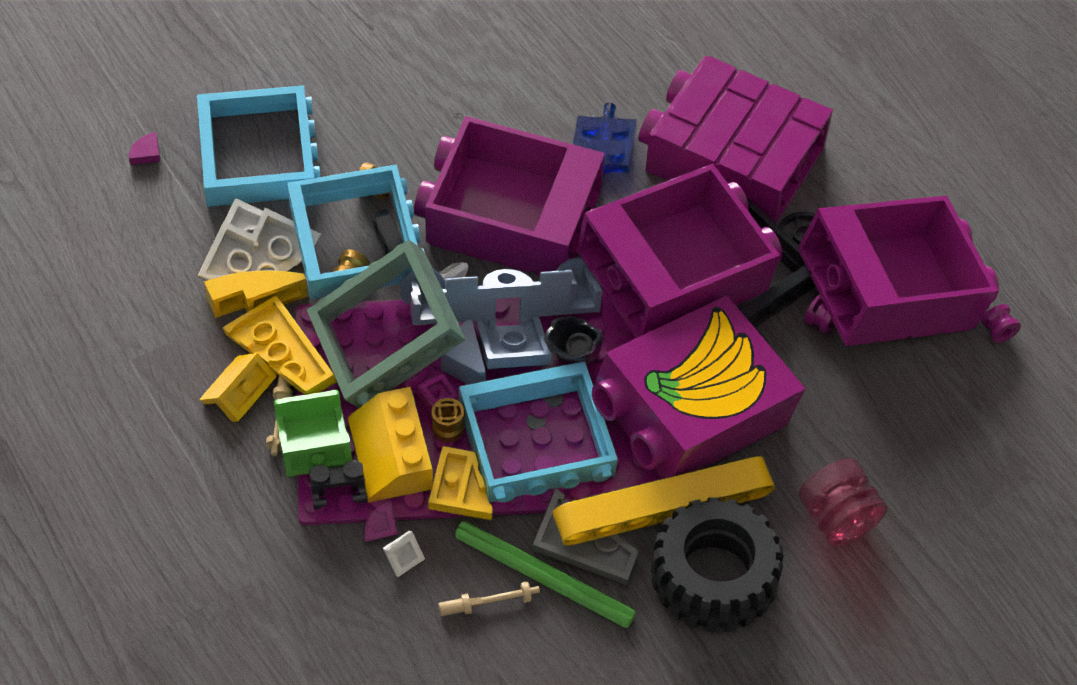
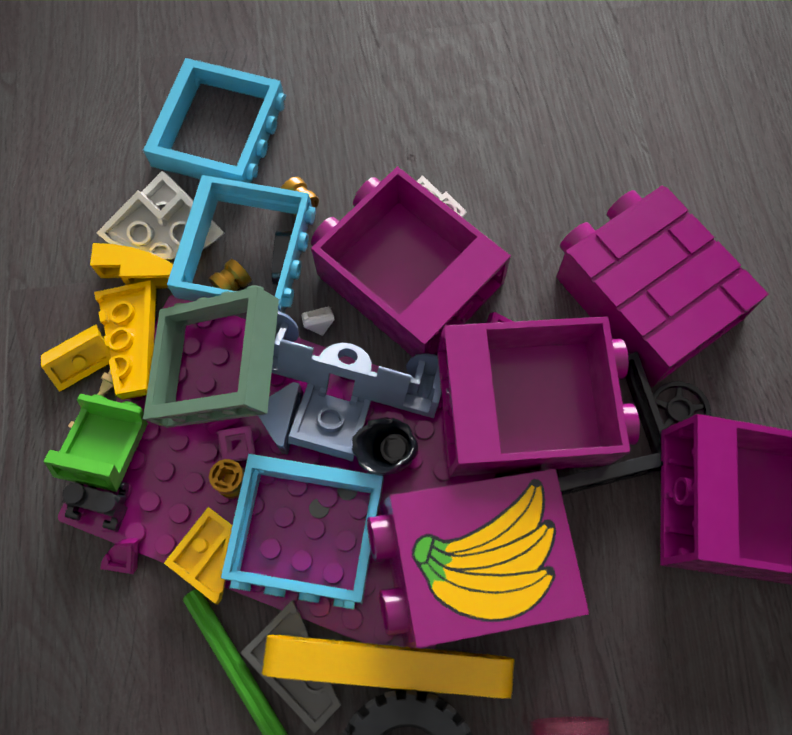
camera: 30 degrees right, 15 degrees up
(145, 150) = (127, 94): magenta tile -> none
(391, 446) = (166, 484): yellow slope -> none
(404, 553) = (124, 600): white slope -> none
(466, 604) = (155, 681): tan piece -> none
(610, 136) = (530, 234): clear blue plate -> none
(819, 316) = (653, 514): magenta wheel -> none

